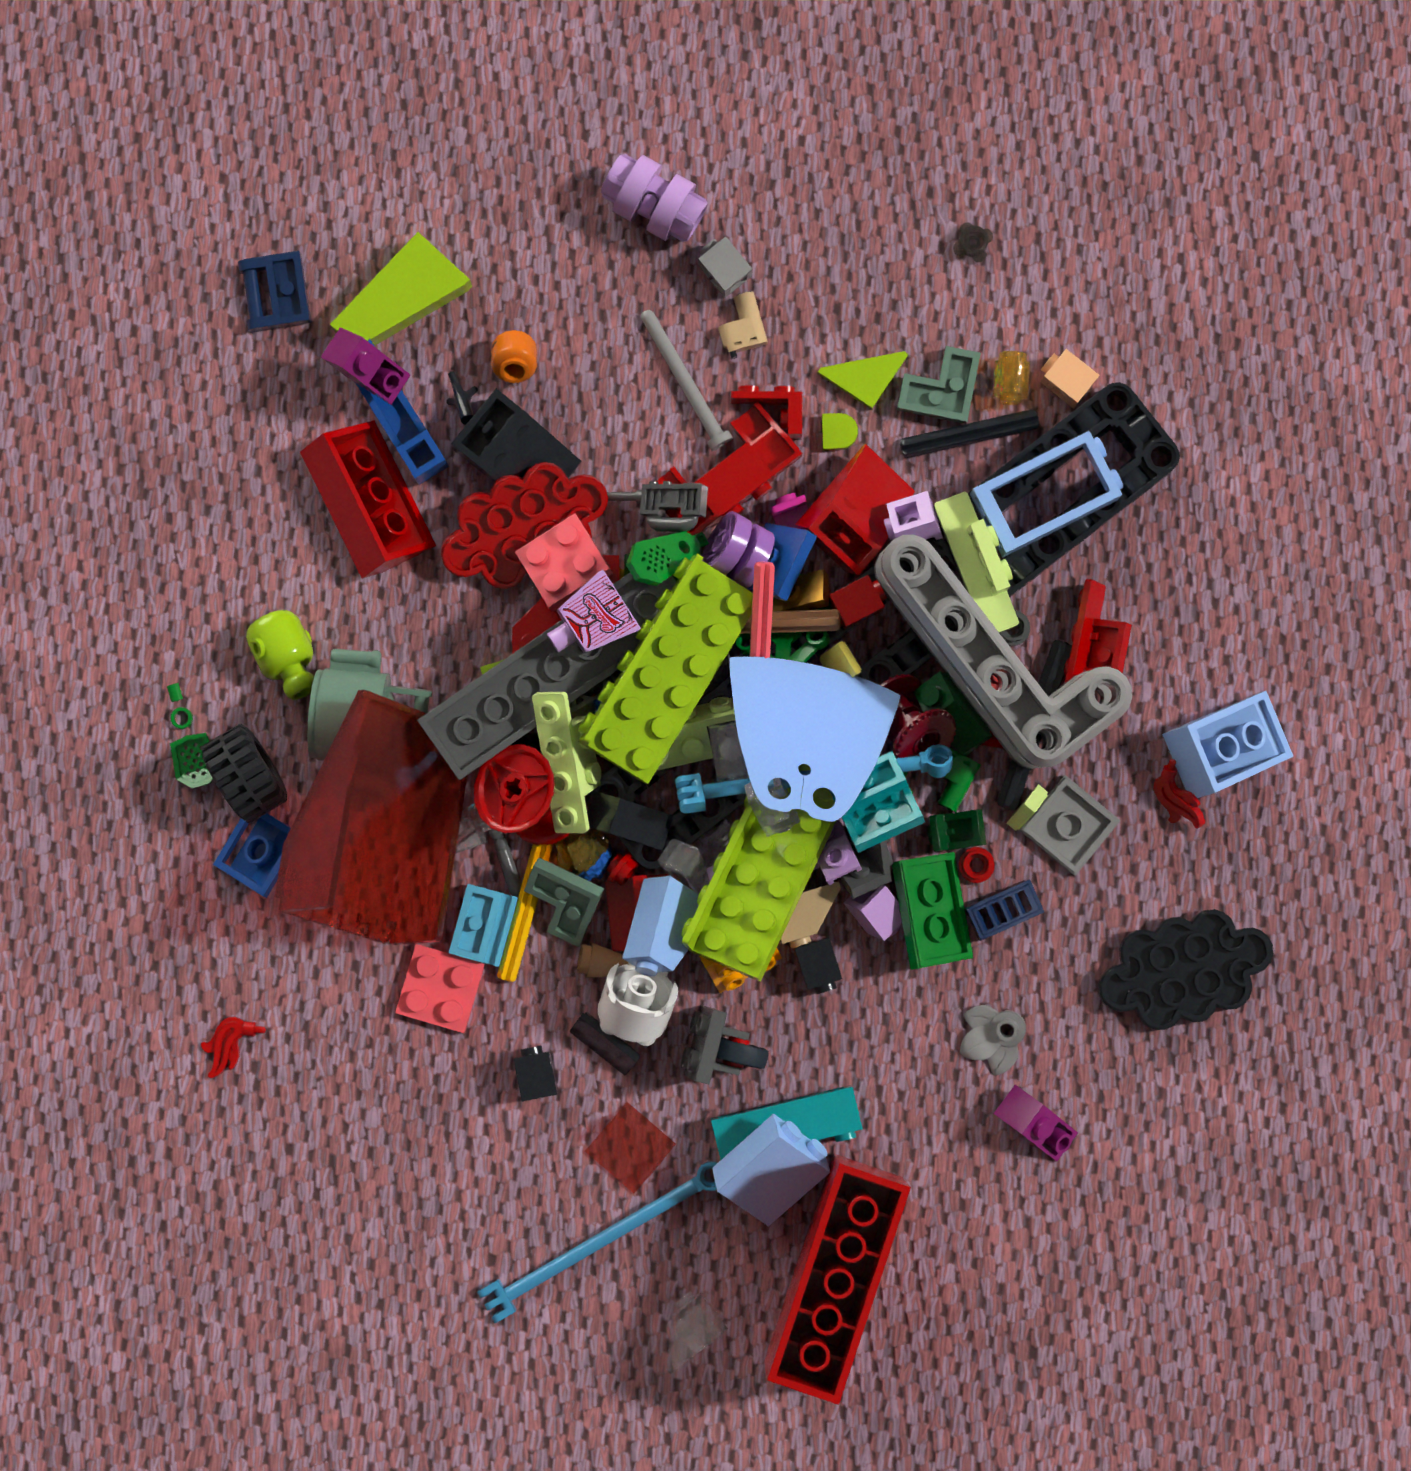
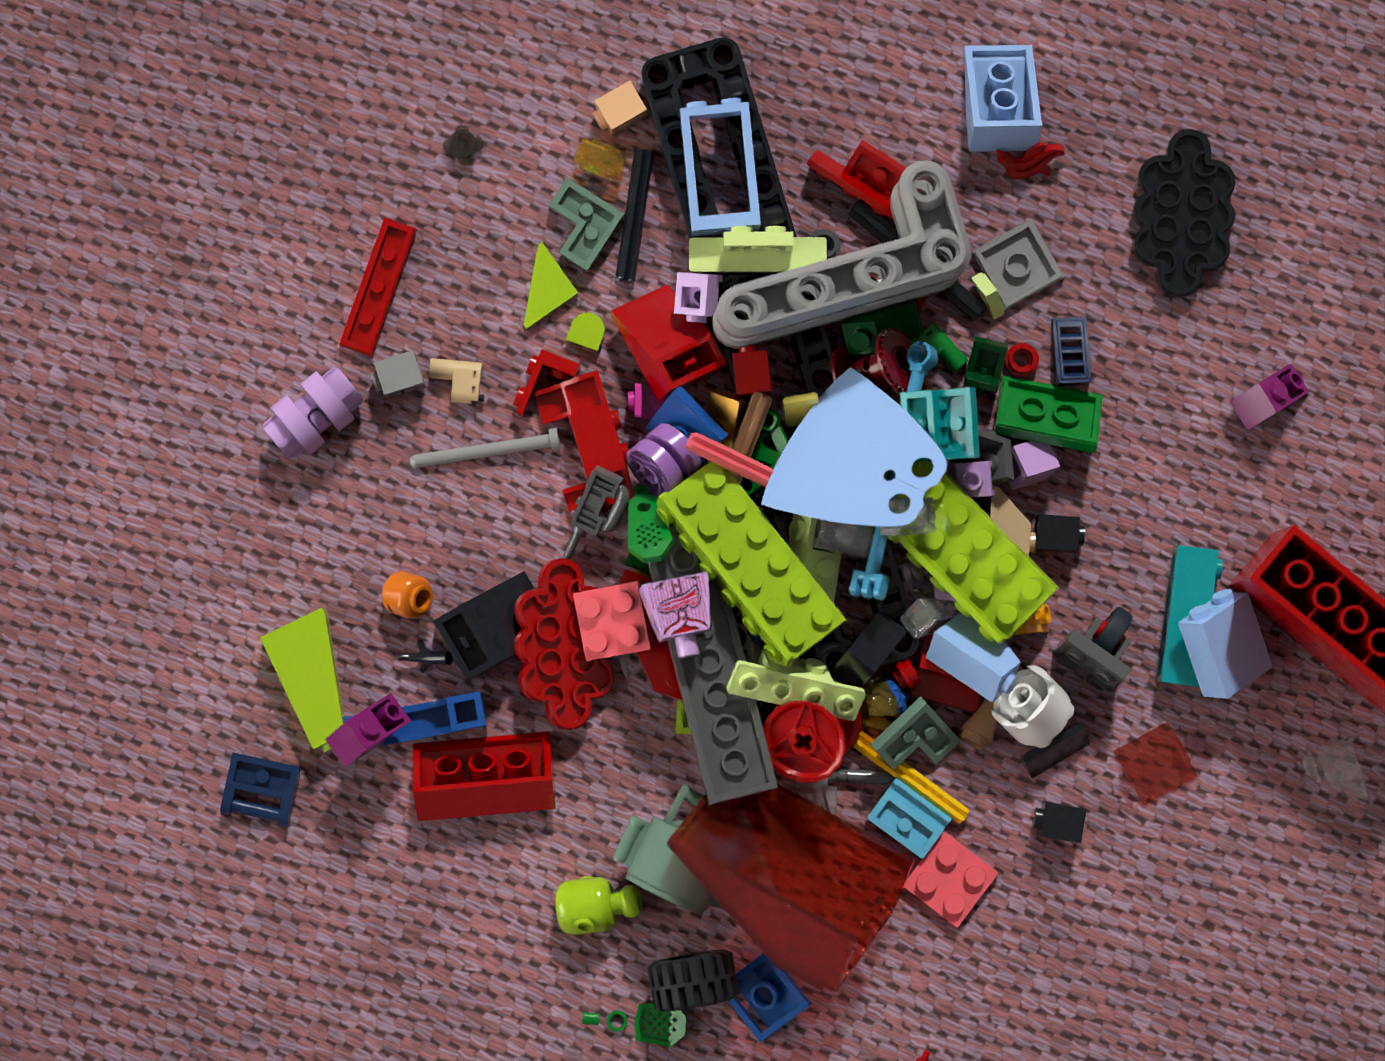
camera: 70 degrees left, 0 degrees up
(505, 1295) = (1245, 924): dark azure hinge -> none
(802, 214) = (377, 287): none -> red tile
(989, 1041) = (1182, 409): light grey plate -> none

